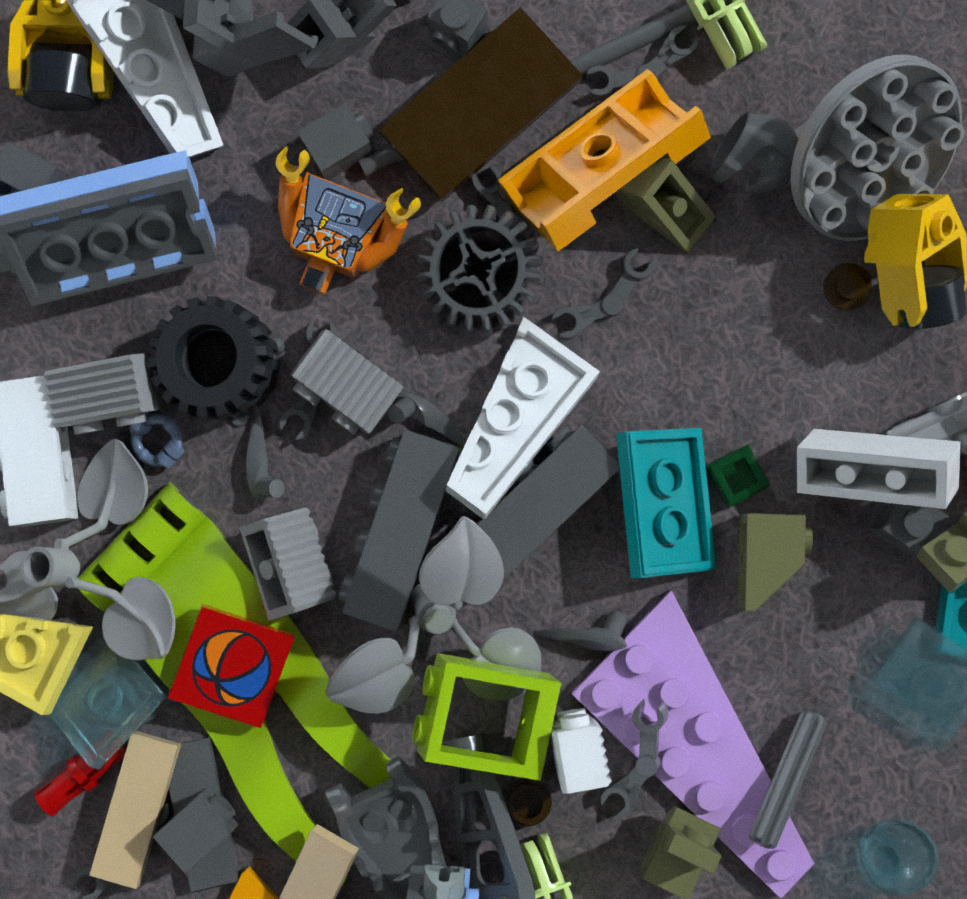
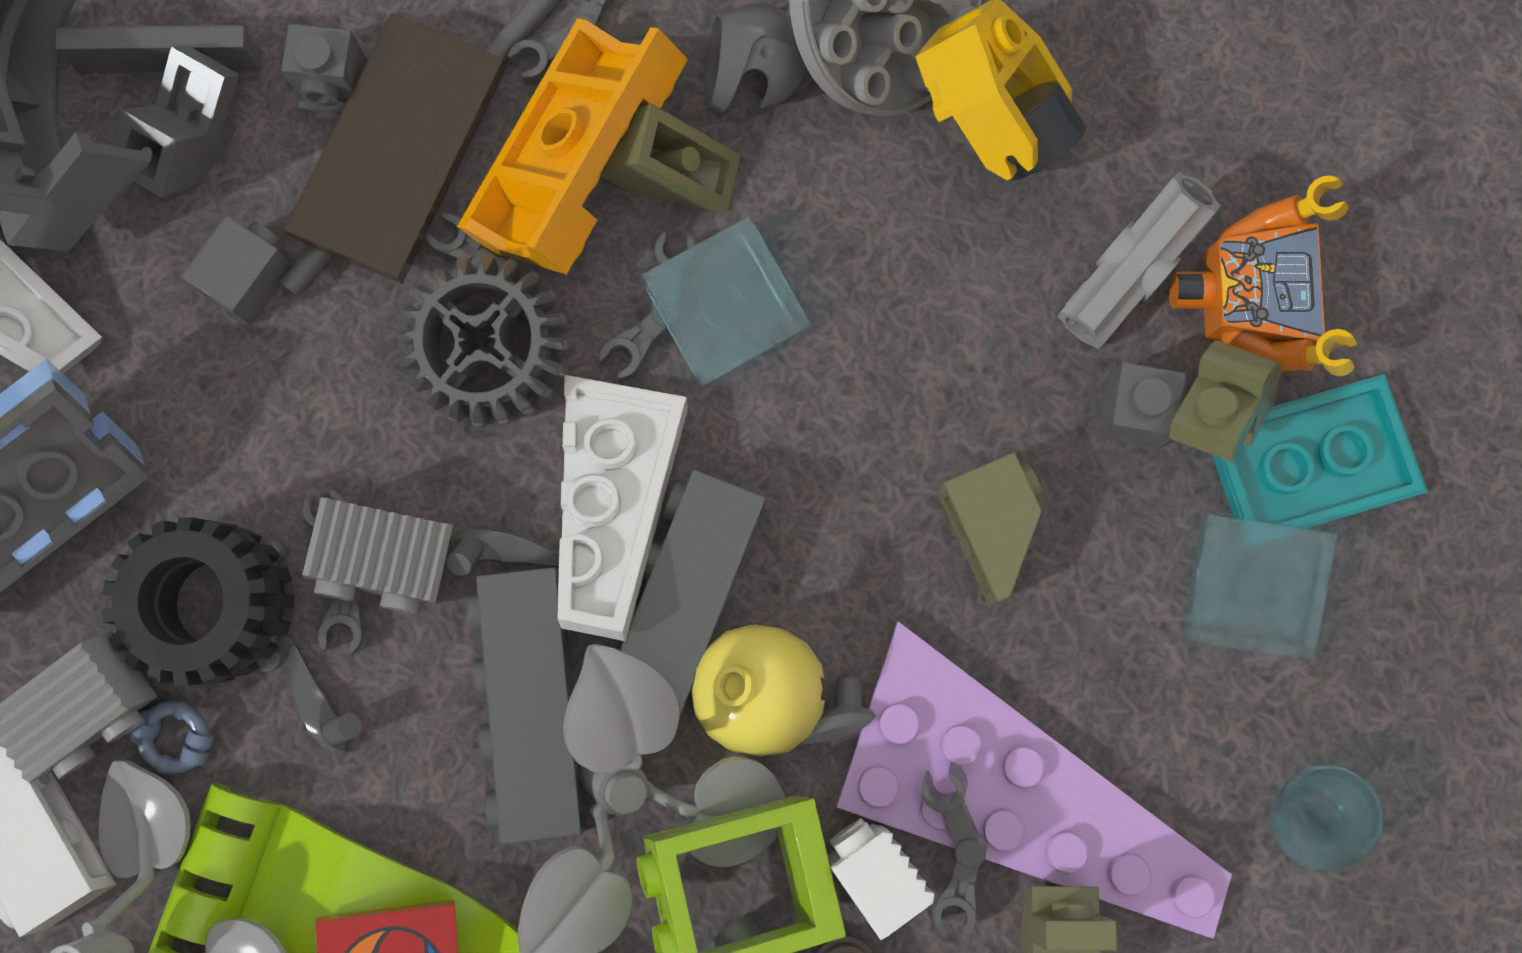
camera: 30 degrees left, 5 degrees down
(288, 563) = (404, 813): light grey brick -> none
(336, 225) = (281, 368): torso -> none
(556, 593) = (758, 690): none -> light yellow cylinder
(657, 317) = (725, 301): none -> clear light blue tile
(665, 502) = (839, 516): teal tile -> none
(737, 476) = (912, 446): dark green tile -> none
(788, 779) = (1150, 786): dark grey axle -> none
(847, 286) = (933, 165): dark brown plate -> none
(879, 468) = (1073, 353): white brick -> none

